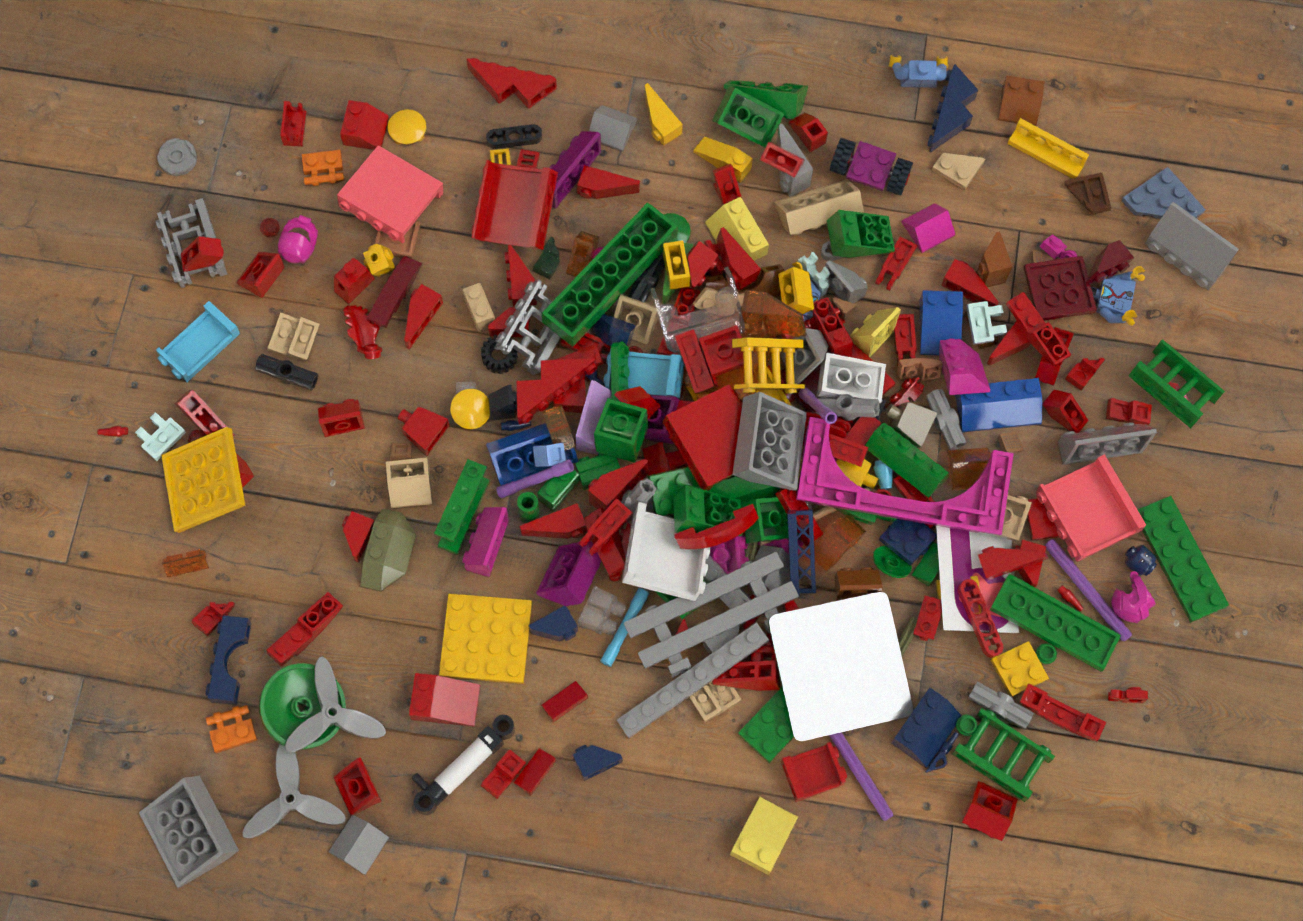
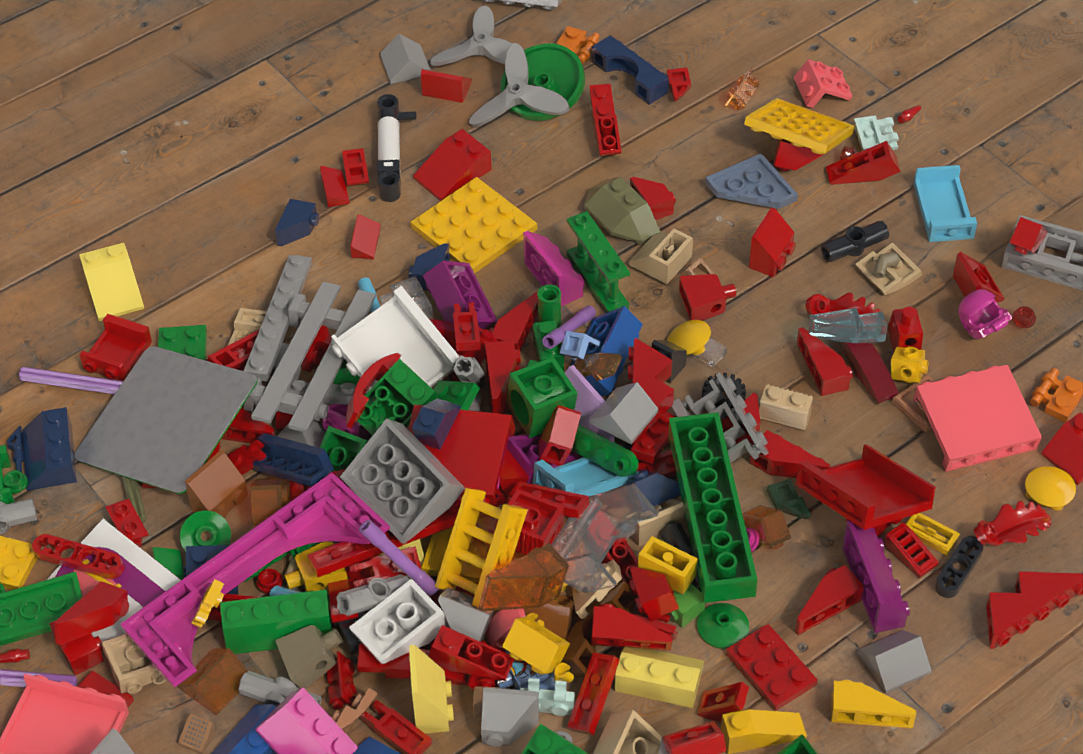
camera: 135 degrees right, 20 degrees down
(131, 510) = (816, 79): none -> coral bracket
(282, 480) = (752, 182): none -> sand blue plate
(294, 335) = (885, 260): none -> dark tan arm
(384, 303) = (849, 326): none -> clear light blue slope
(460, 123) = (1013, 524): none -> red plant
(591, 370) = (625, 412): none -> light grey slope
(676, 184) = (771, 667): none -> red plate
(713, 453) = (435, 422): none -> dark blue slope
(787, 251) = (593, 693): none -> red plate
(818, 593) = (245, 456): none -> red plate
(942, 492) = (211, 598): none -> yellow plate

